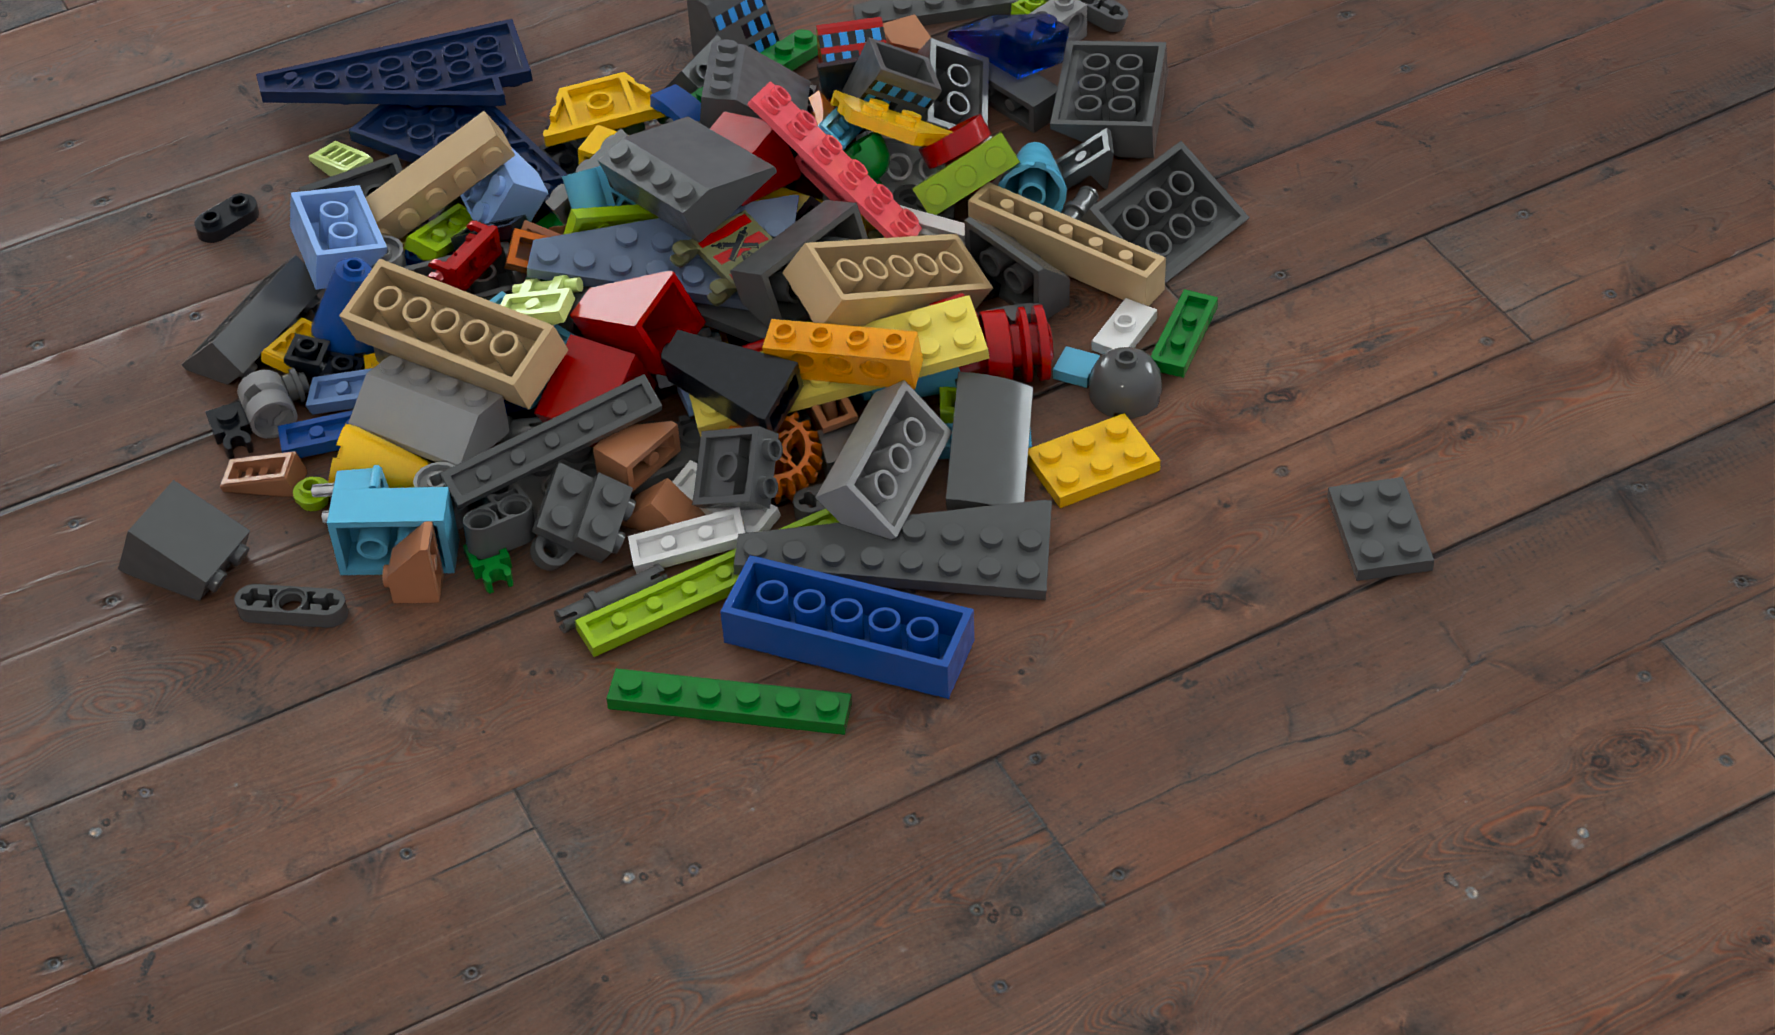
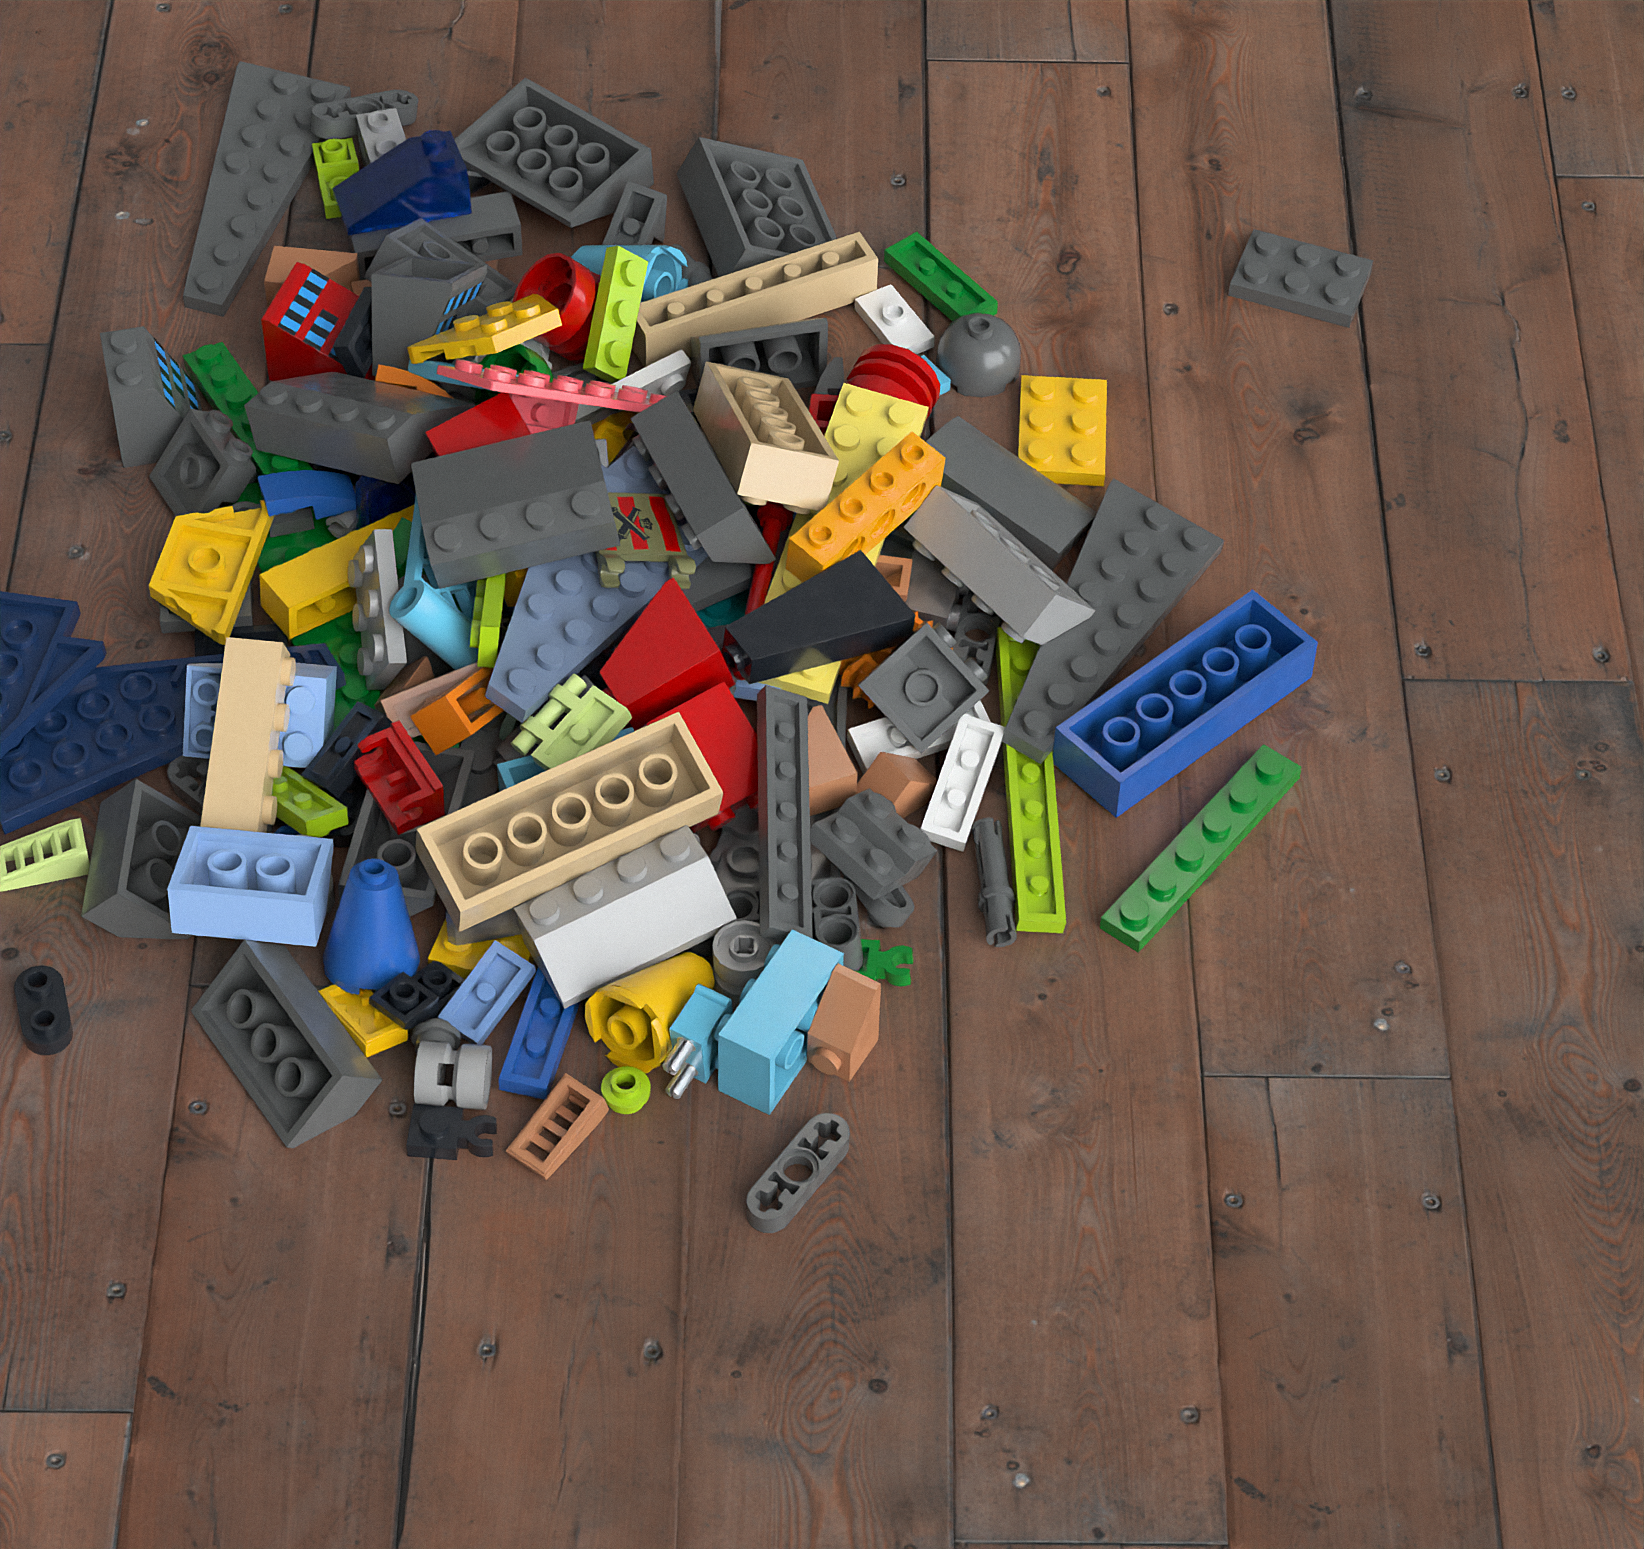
camera: 65 degrees left, 5 degrees up
(183, 544) = (639, 1237): dark grey slope -> none

